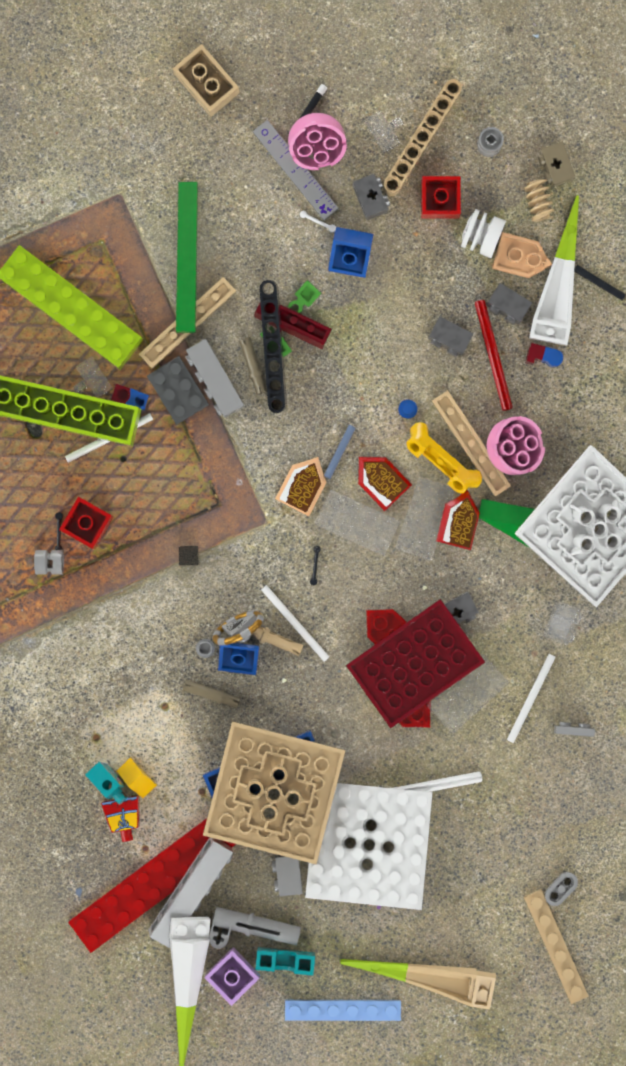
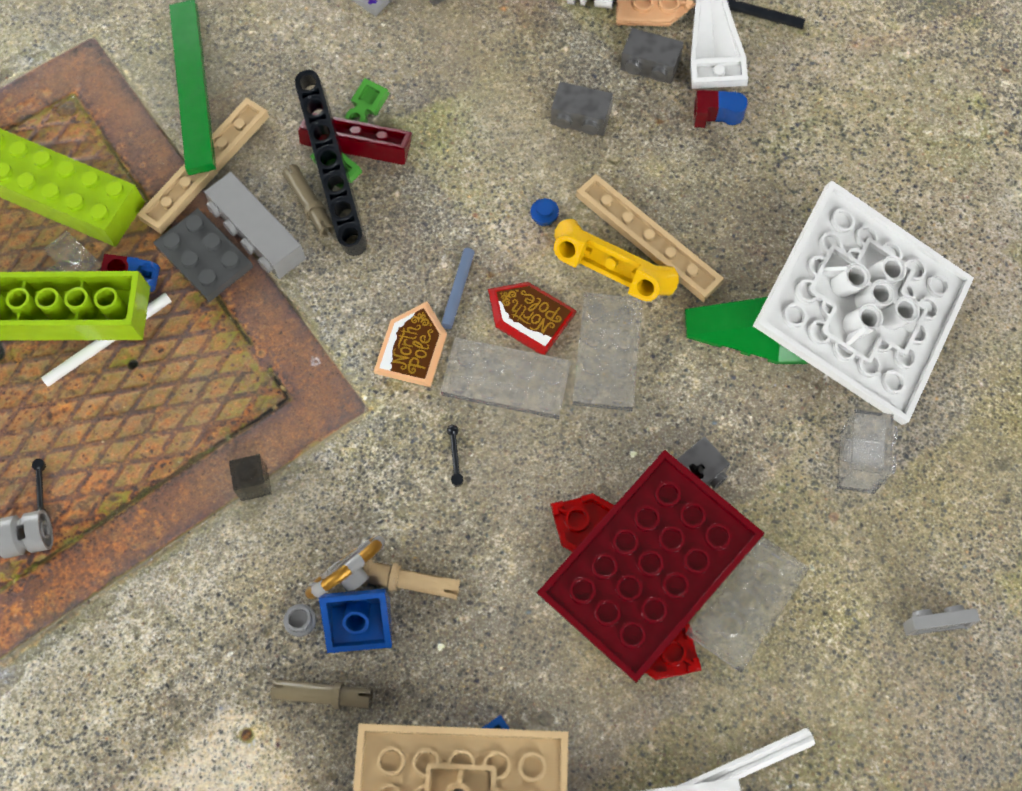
camera: 10 degrees left, 20 degrees down
(86, 523) = (78, 460): red brick -> none
(295, 623) = (441, 550): white piece -> none
(332, 228) = (387, 21): white hinge -> none
(350, 252) = (418, 39): blue slope -> none
(459, 522) = (660, 345): tile -> none
(493, 355) = (649, 124): red axle -> none
(515, 446) = (714, 217): bright pink cylinder -> none
(531, 698) = (851, 589): white piece -> none

